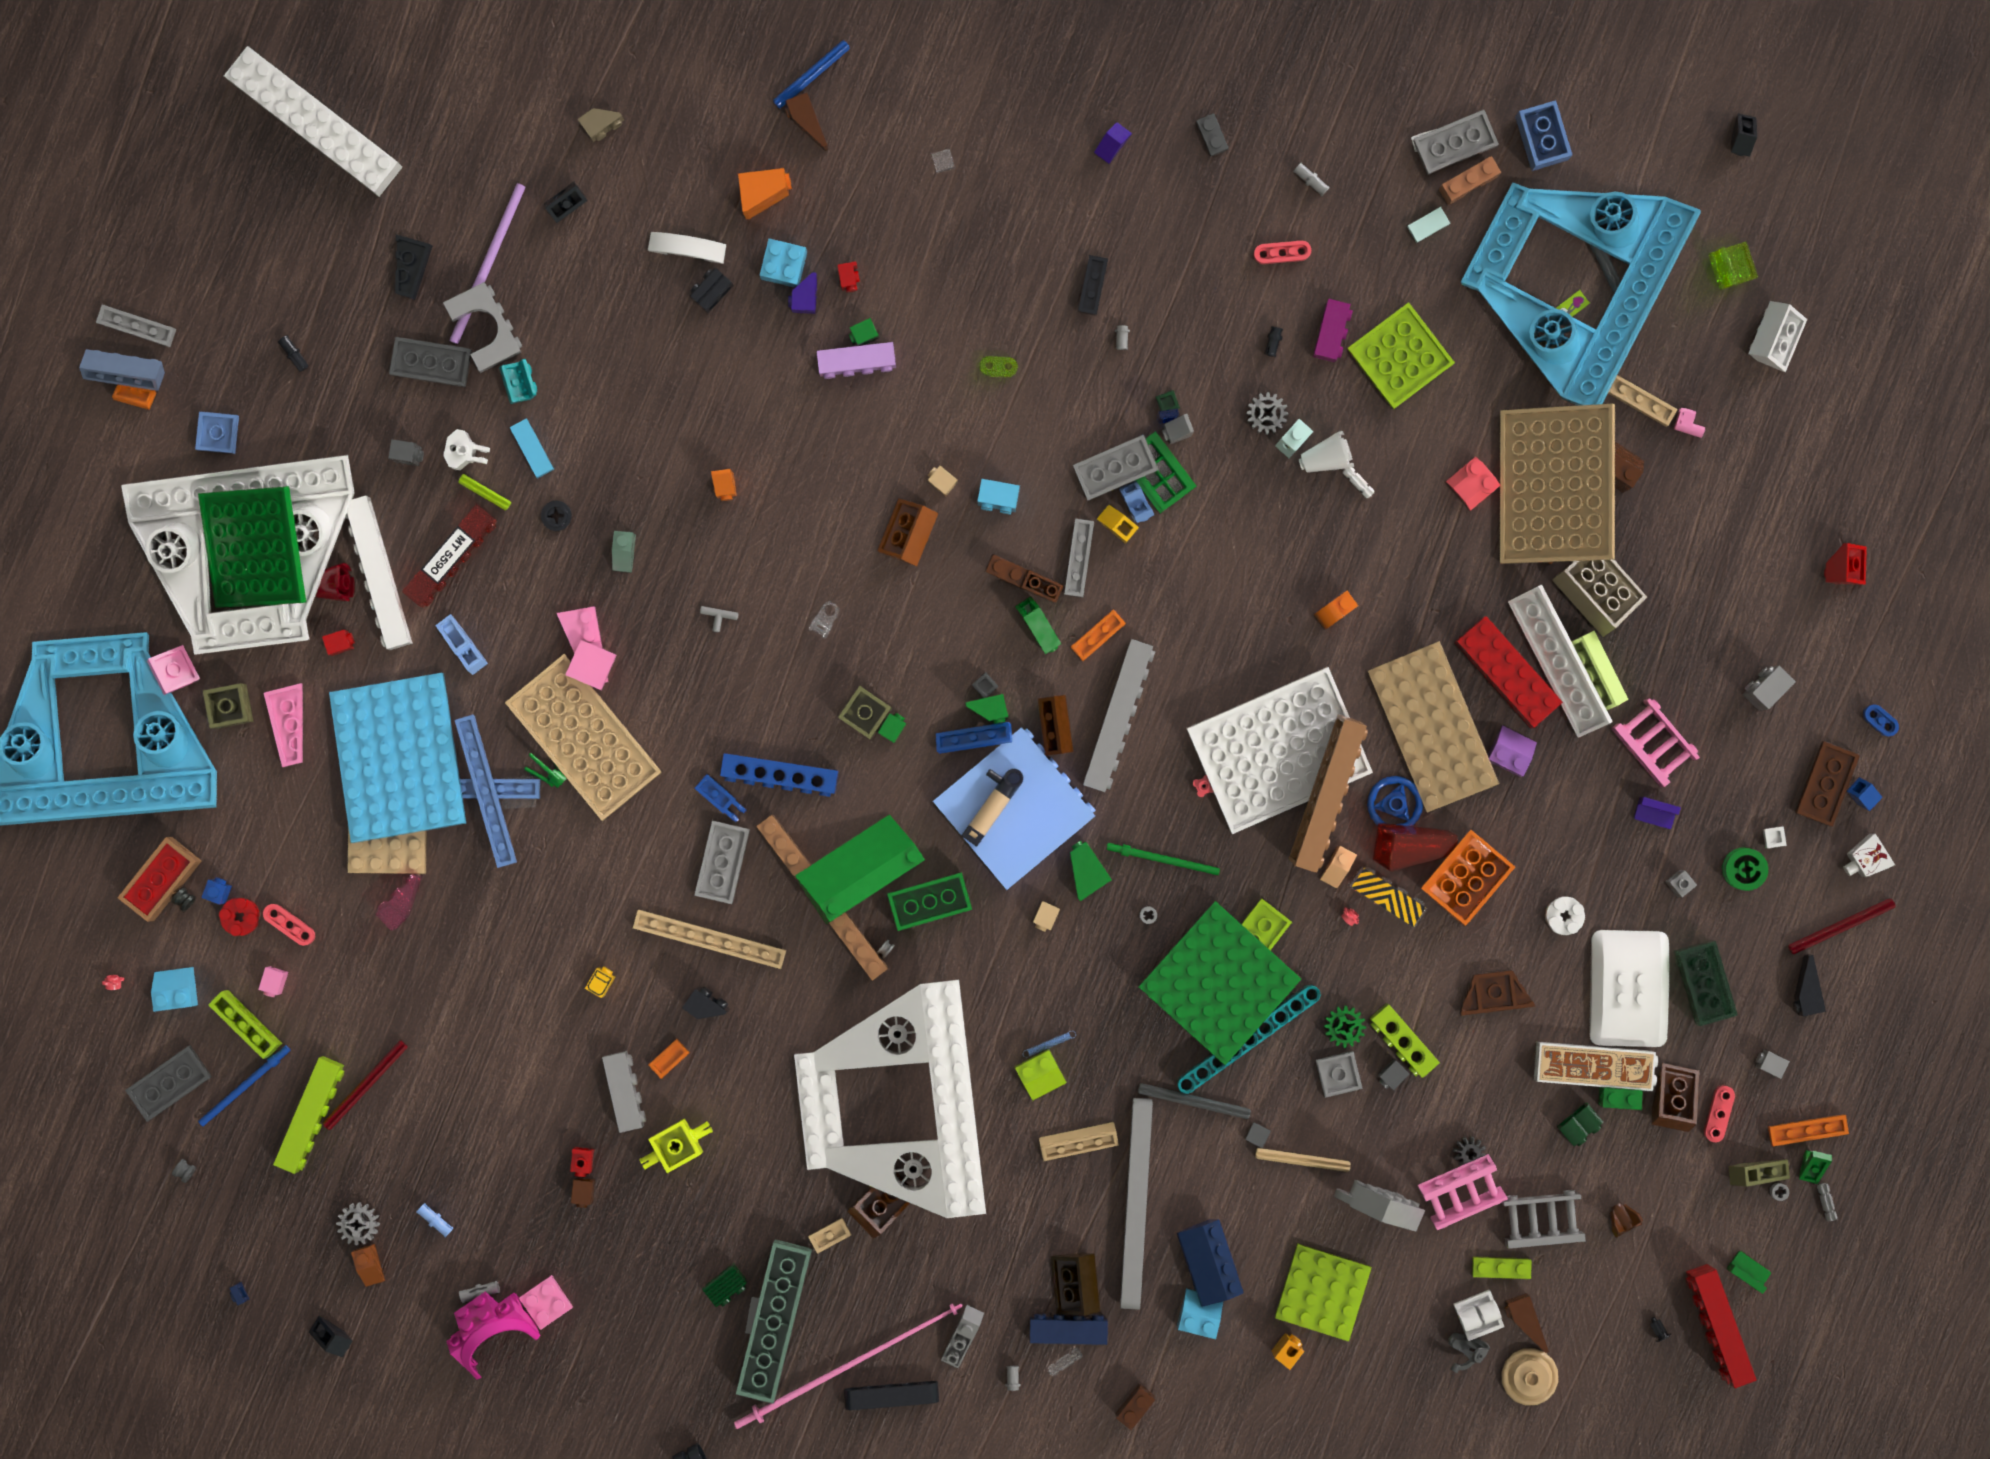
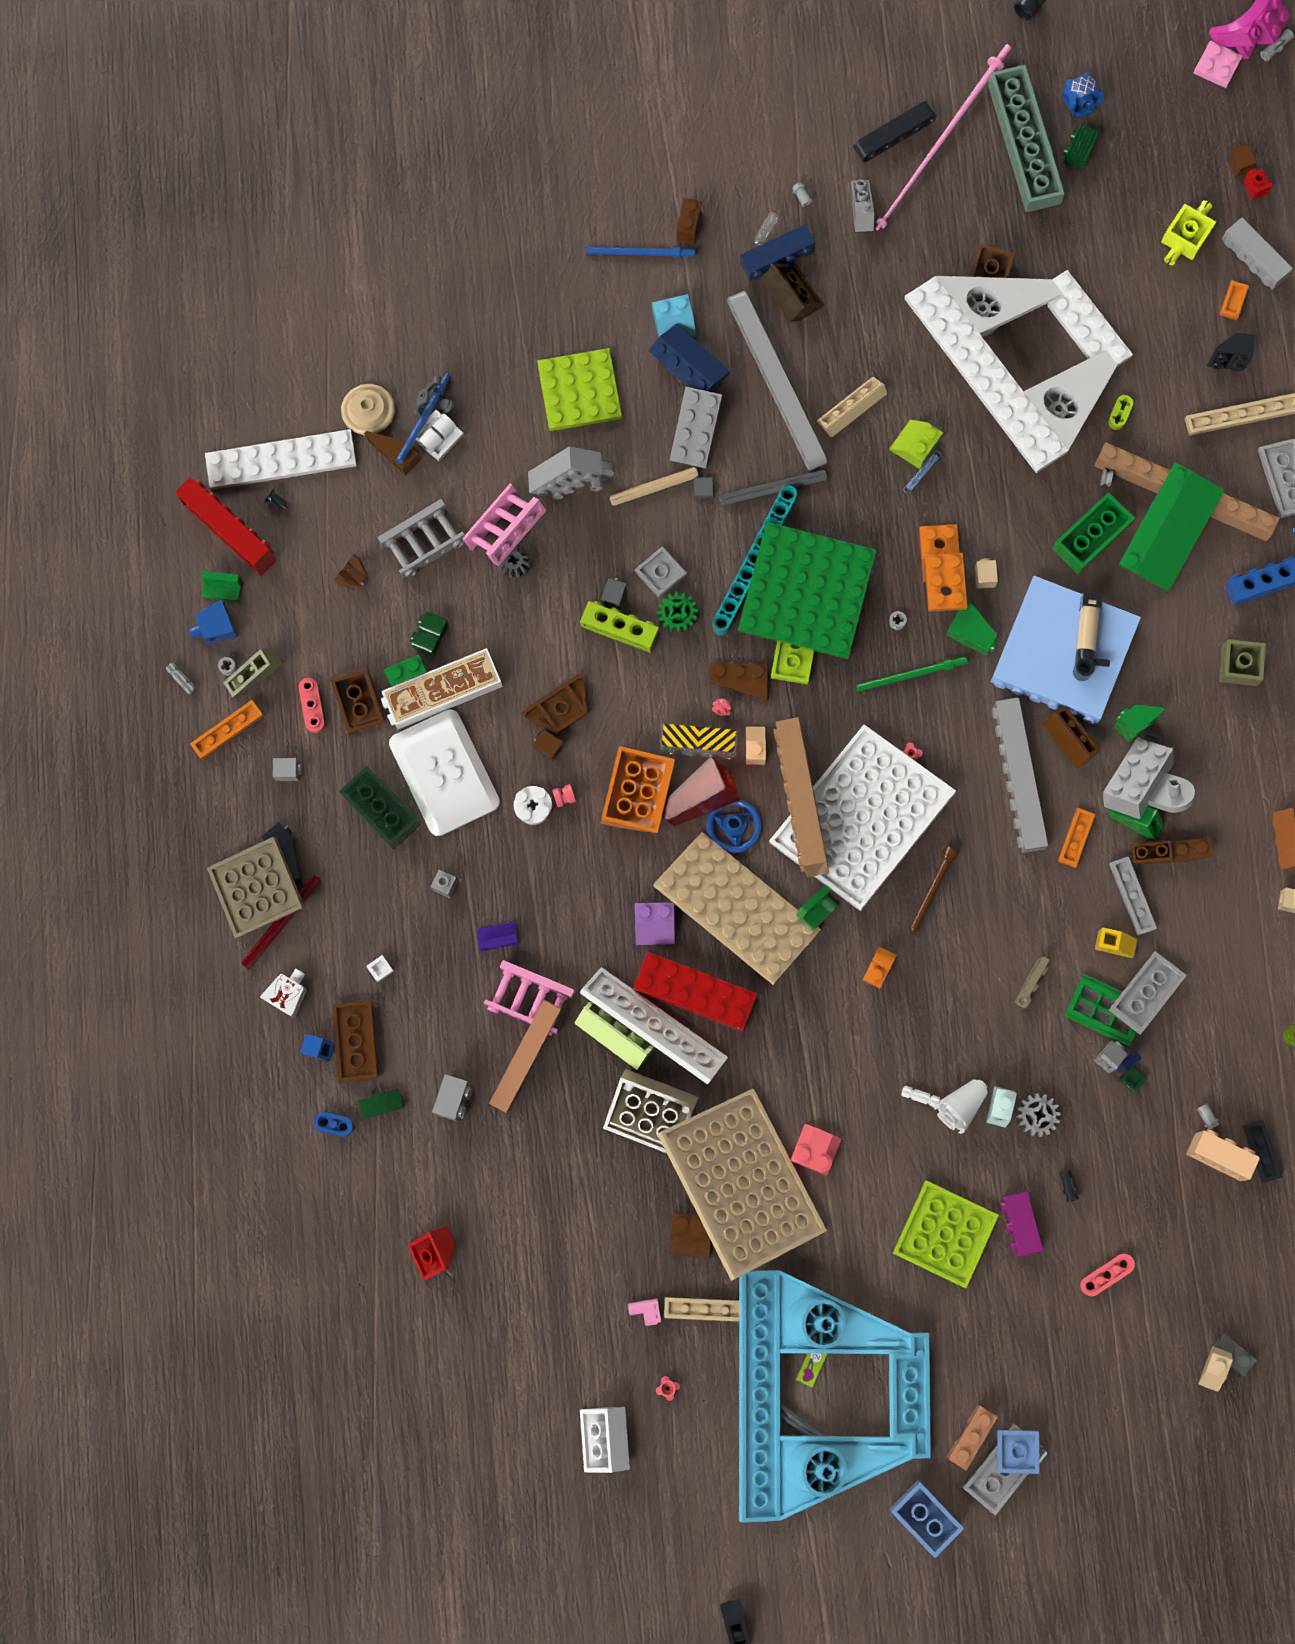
camera: 155 degrees right, 10 degrees down
(696, 1336) = (1082, 95): none -> blue brick
(829, 1235) = (1018, 228): tan plate -> none
(833, 1001) = (1117, 411): none -> lime beam
(892, 727) = (1210, 663): green brick -> none
(973, 737) = (1136, 689): blue plate -> none
(998, 496) = (1237, 911): medium azure brick -> none
(1015, 648) = (1145, 781): none -> light grey brick
(1083, 941) = (942, 568): none -> orange bracket
(1131, 298) = (1223, 1155): none -> light nougat brick
(1136, 502) = (1111, 971): medium blue brick -> none
(1162, 1382) = (676, 252): none -> blue bar
(1209, 529) = (1031, 982): none -> dark tan hinge
(1220, 677) = (949, 855): none -> reddish brown piece
(1235, 131) = (1216, 1369): none -> tan slope
(1237, 1194) = (695, 427): none -> light grey plate
(1288, 1350) = (585, 327): light orange brick -> none
(1311, 179) = (1119, 1360): light grey pin -> none
(1317, 935) = (741, 677): none -> reddish brown wing
(1362, 689) = (817, 908): none -> green panel
(1428, 225) = (986, 1374): light aqua tile -> none
(1439, 148) = (1018, 1451): none -> medium blue plate
(1484, 1338) = (438, 391): none -> blue bar
(1501, 1267) = (437, 484): lime plate -> none
(1525, 963) = (547, 745): none -> reddish brown brick
(1534, 909) = (563, 795): none -> coral wheel
(1635, 1369) = (280, 459): none -> white plate
(1686, 692) = (525, 1056): none -> nougat tile
(1709, 352) = (669, 1394): none -> coral plate
(1733, 265) = (680, 1487): clear neon green plate -> none
(1760, 868) = (381, 934): green wheel -> none
(1773, 1238) = (214, 624): none -> blue torso
(1814, 1166) = (207, 702): green slope -> none
(1831, 717) = (380, 1104): none -> dark green slope
(1852, 966) = (255, 887): none -> dark tan plate

